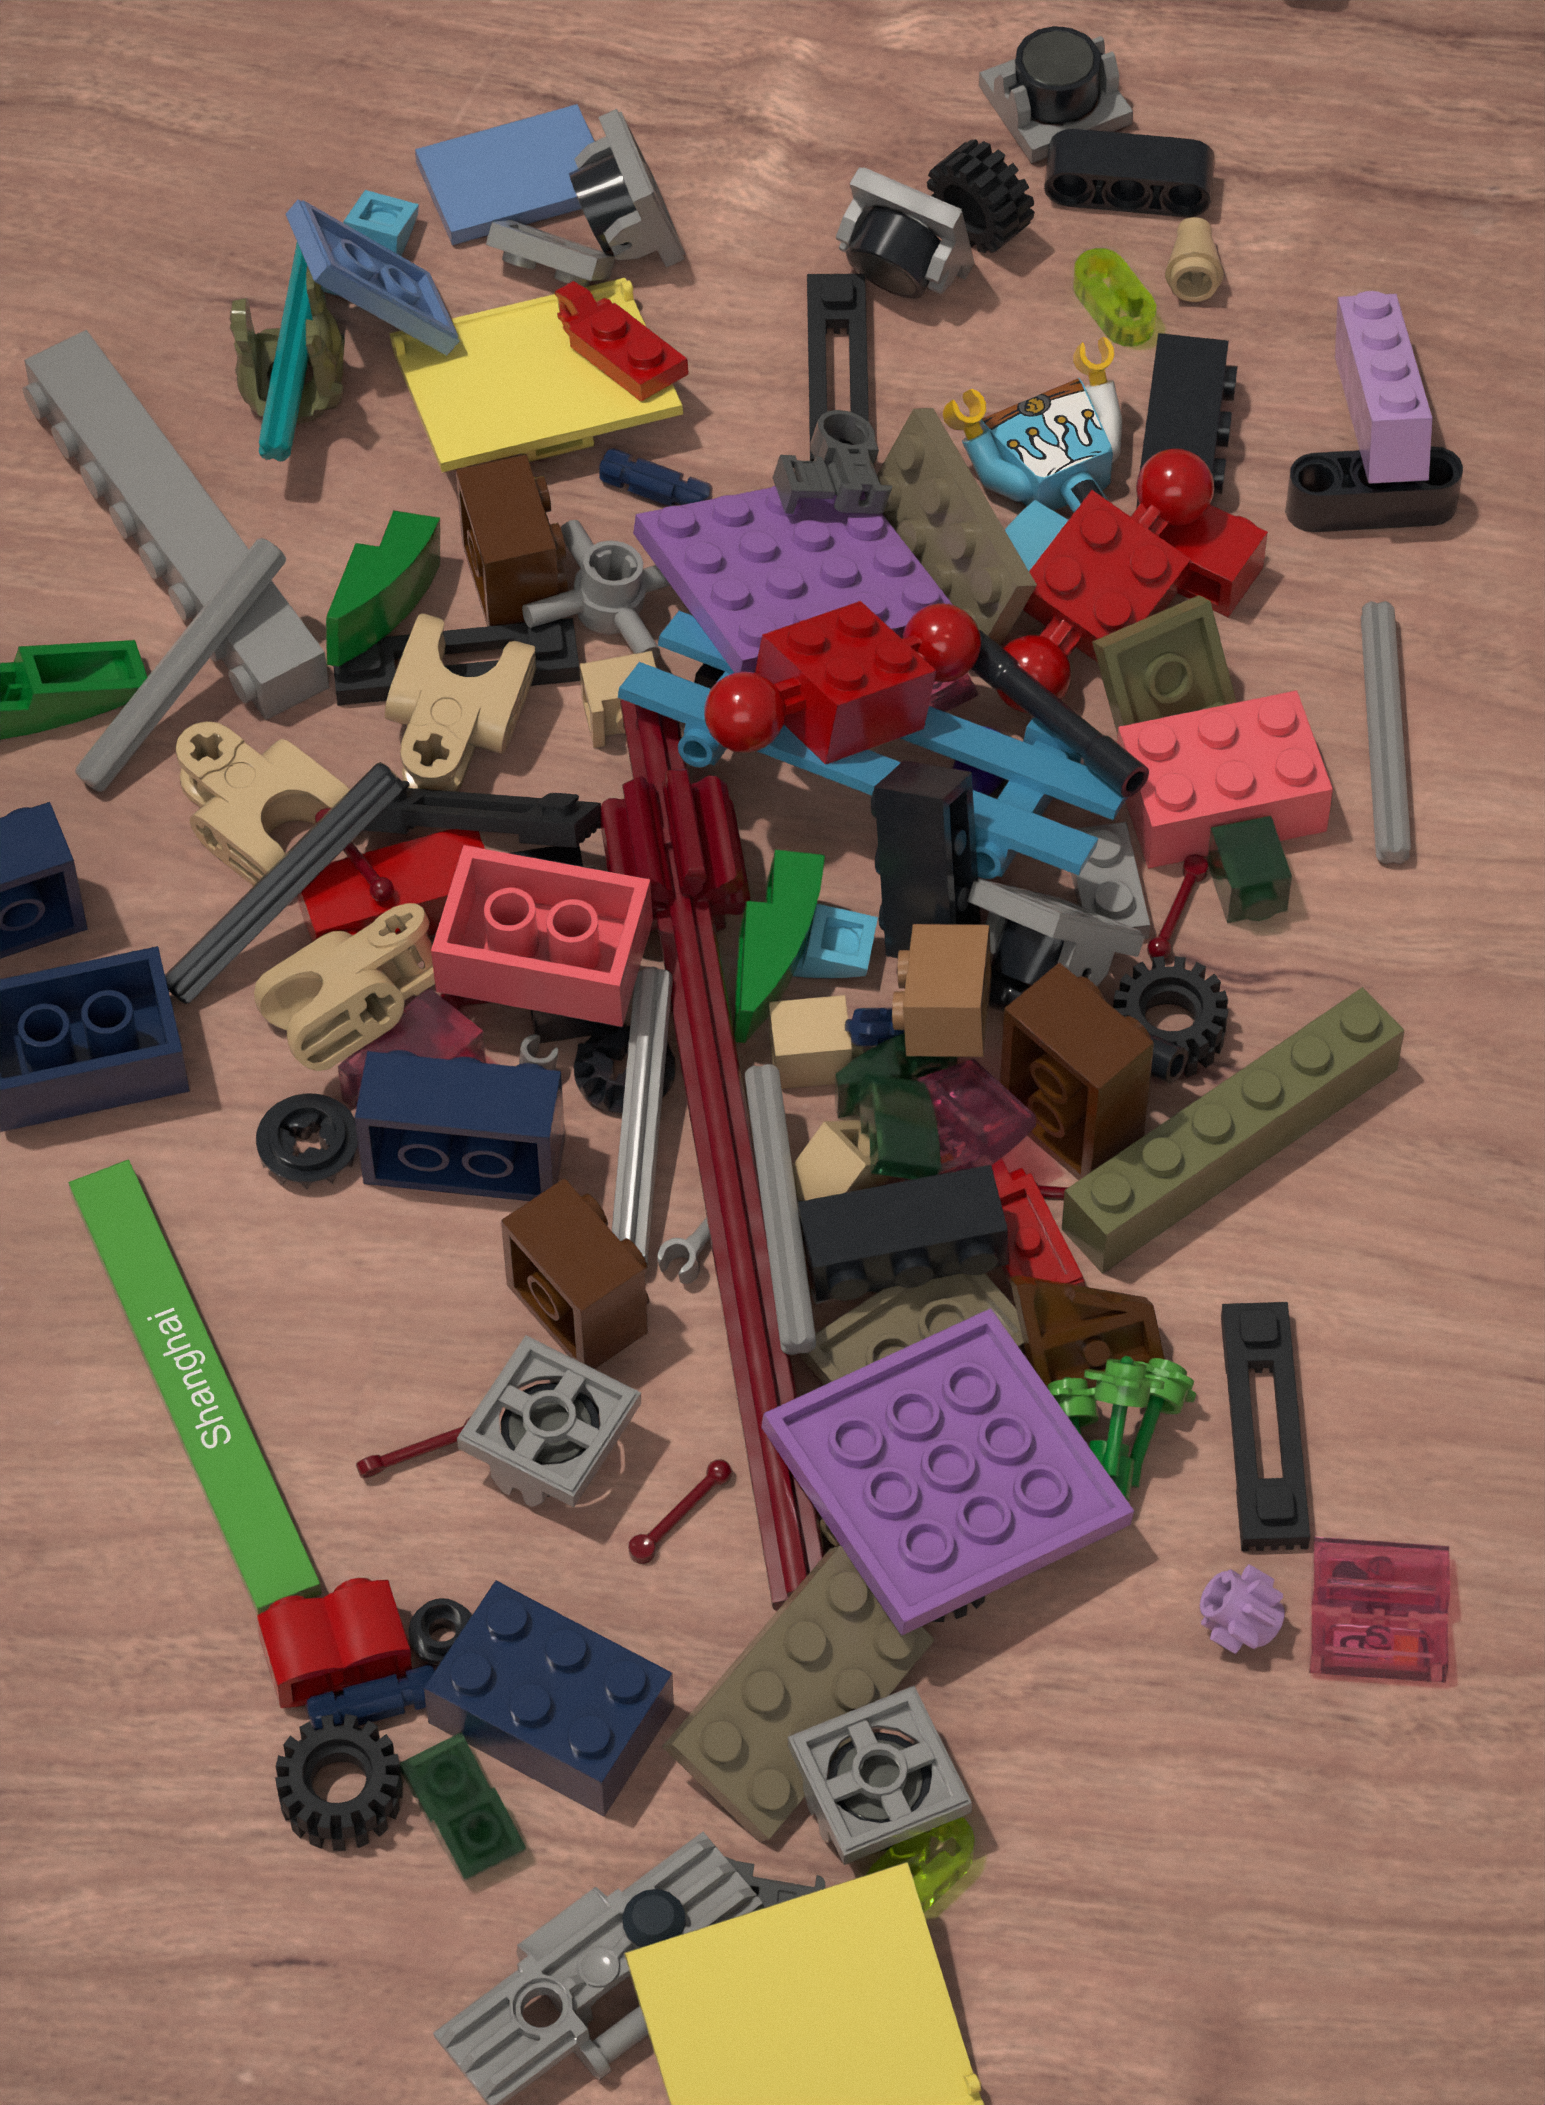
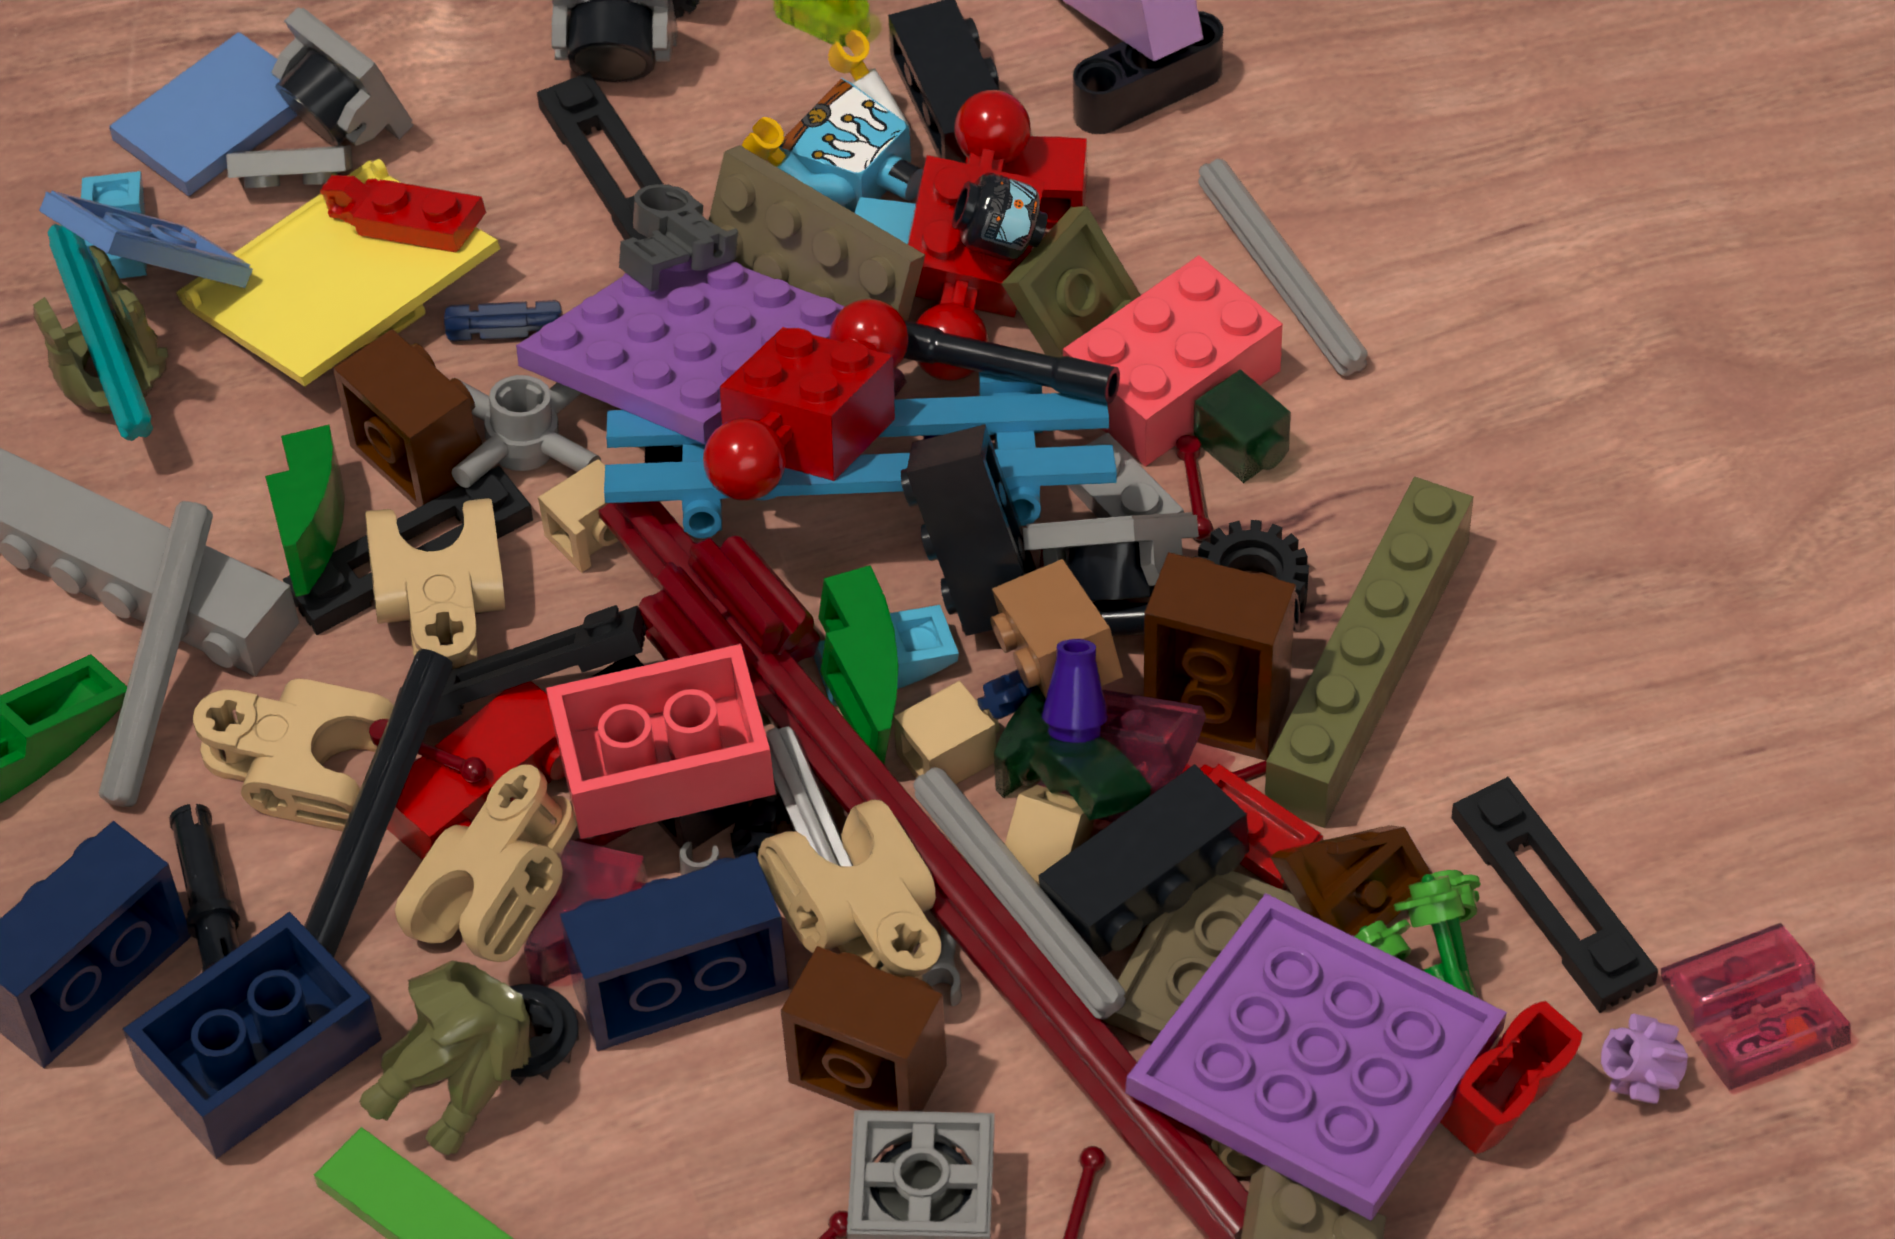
camera: 25 degrees left, 5 degrees down
(109, 918) = (211, 913): none -> black pin
(244, 1120) = (464, 1032): none -> olive piece
(635, 1161) = (863, 907): none -> tan piece
(923, 1055) = (1075, 694): none -> dark purple cone
(1119, 578) = (999, 216): none -> head
(1124, 1567) = (1511, 1076): none -> red brick

